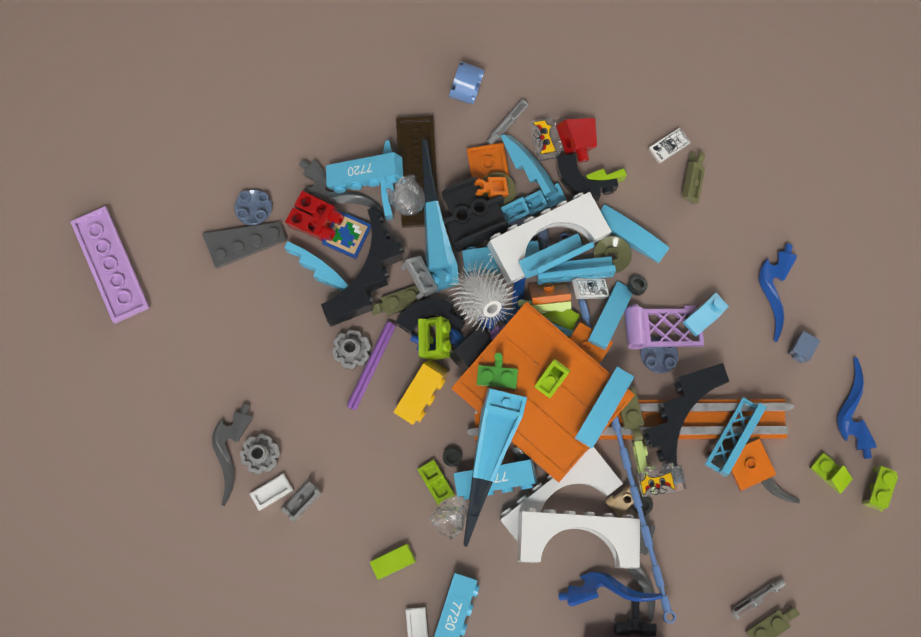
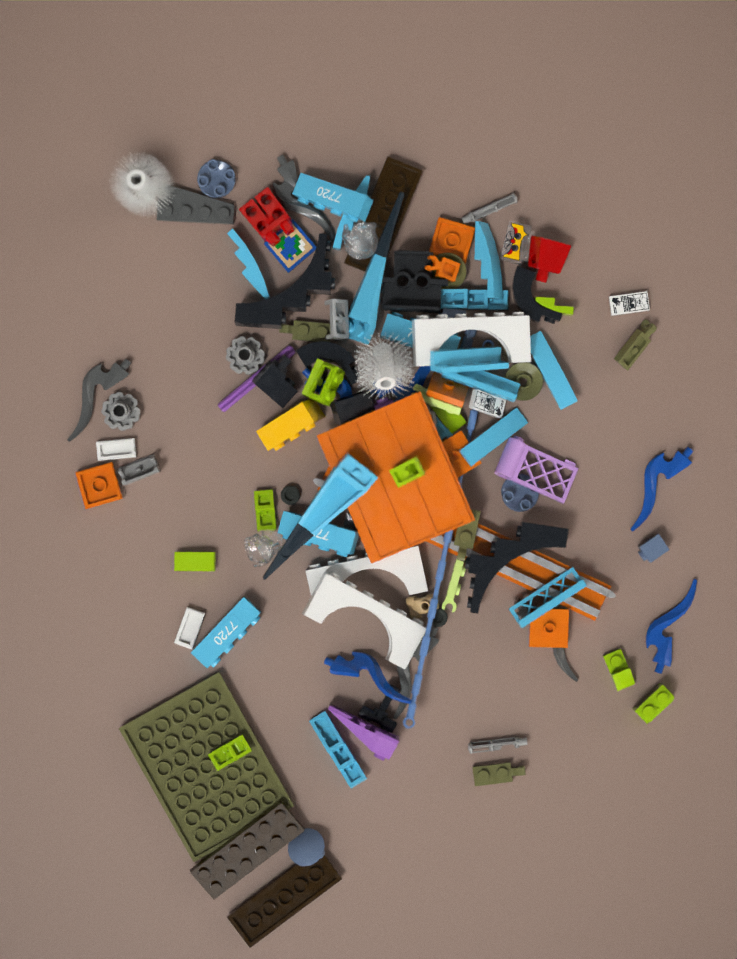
camera: 25 degrees right, 10 degrees up
(110, 265) = (61, 171): lavender plate -> none
(187, 239) = (142, 184): none -> white piece
(270, 533) = (99, 485): none -> orange plate
(389, 361) = (273, 382): none -> black hinge
(466, 83) = (467, 154): medium blue brick -> none
(496, 375) = (361, 444): bright green plate -> none
(604, 407) = (441, 518): medium azure slope -> none
(637, 285) = (532, 420): pearl dark grey tile -> none
(661, 480) = (461, 605): clear brick -> none
(705, 314) = (578, 477): medium azure slope -> none

